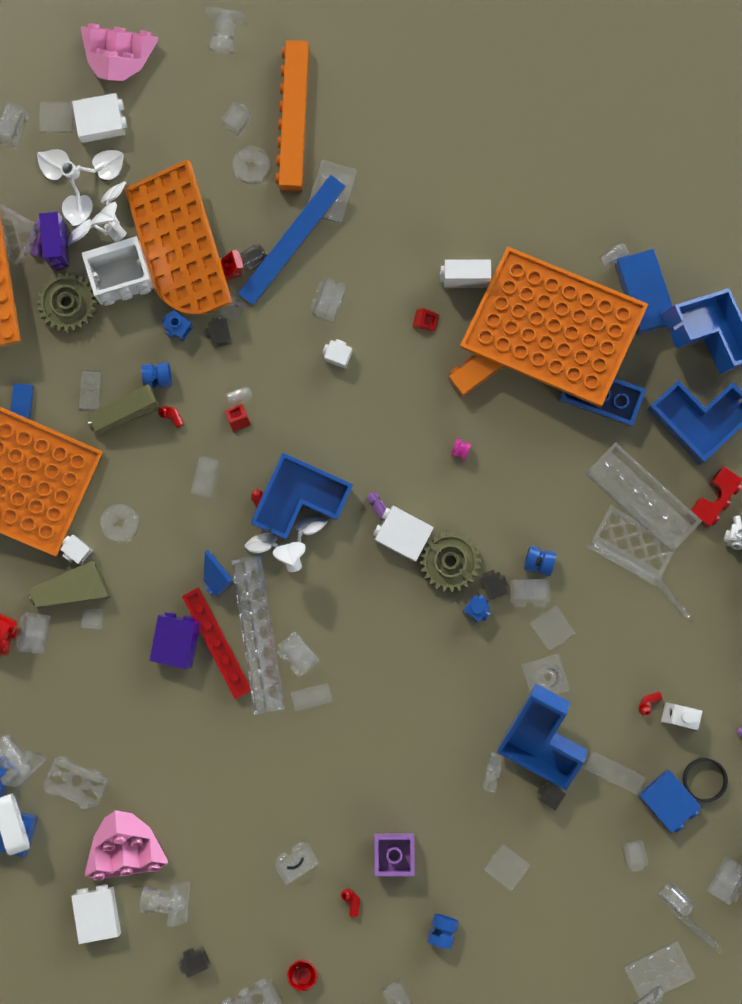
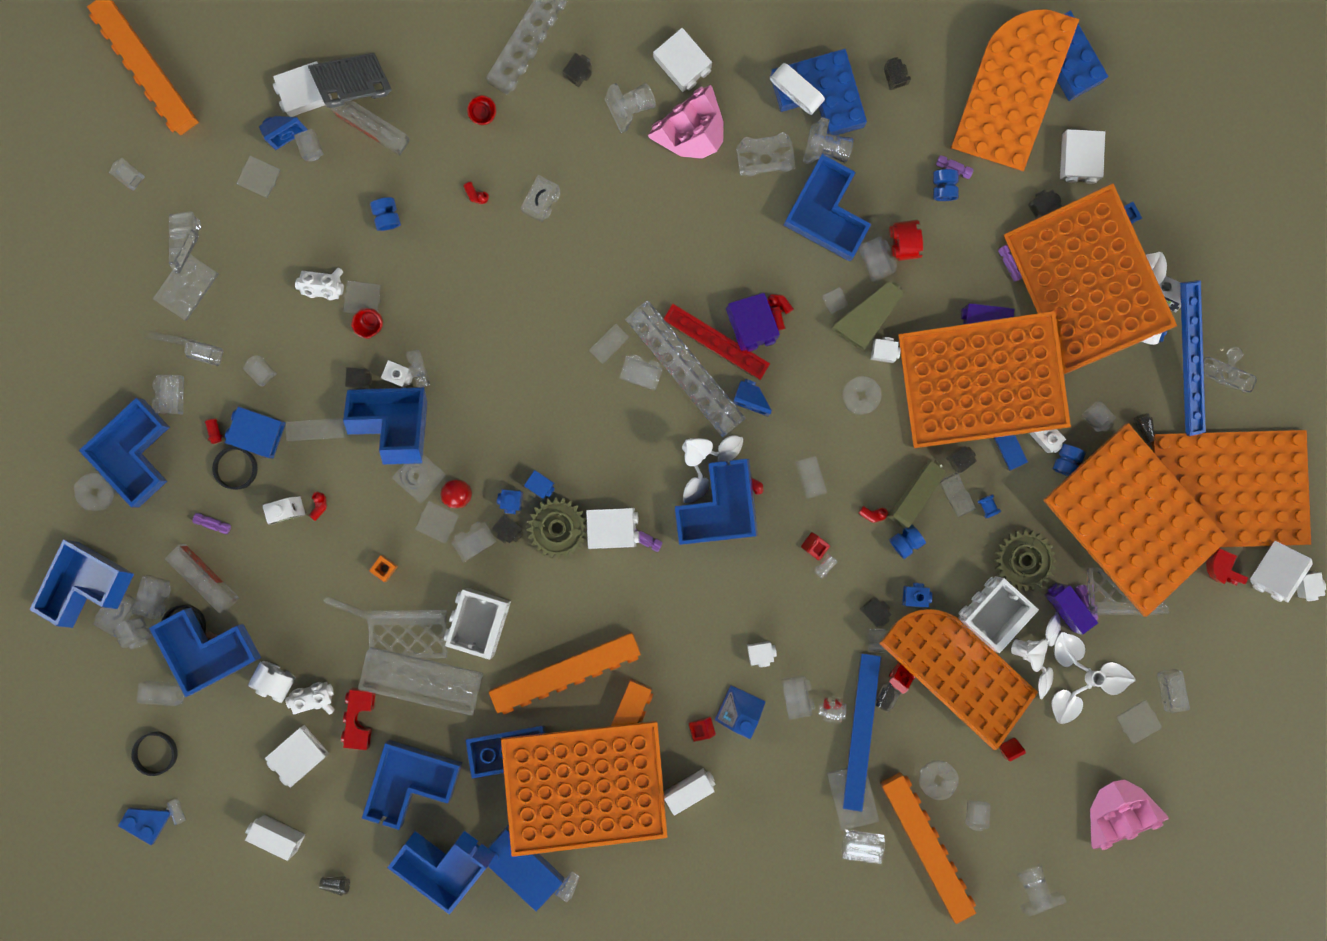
camera: 140 degrees right, 5 degrees up
(60, 701) = (818, 213): none -> blue piece
(67, 418) = (962, 459): none -> clear smoke brick
(69, 365) = (989, 506): none -> blue bush
(99, 117) = (1100, 743): white brick -> none
(140, 646) = (780, 301): none -> red arm
(148, 638) = (778, 317): none -> red pin
(174, 154) = (1012, 749): none -> red slope
(305, 271) = (833, 710): none -> clear head
(347, 146) = (863, 846): none -> clear brick
(384, 315) = (740, 712): none -> blue slope
(394, 854) = (461, 252): medium lavender brick -> none
(443, 607) = (540, 485): none -> blue brick
(461, 449) = (604, 631): dark pink wheel -> none
(513, 778) = (397, 374): none -> white brick
(514, 433) = (565, 672): none -> orange brick
(514, 841) = (367, 323): none -> red hair
(522, 643) = (456, 494): none -> red hair
(536, 900) = (320, 284): none -> white brick
(546, 563) = (473, 575): blue wheel -> none
(566, 519) = (477, 623): none -> white container
(628, 614) = (377, 570): none -> orange plate
(706, 824) = (213, 431): none -> red pin

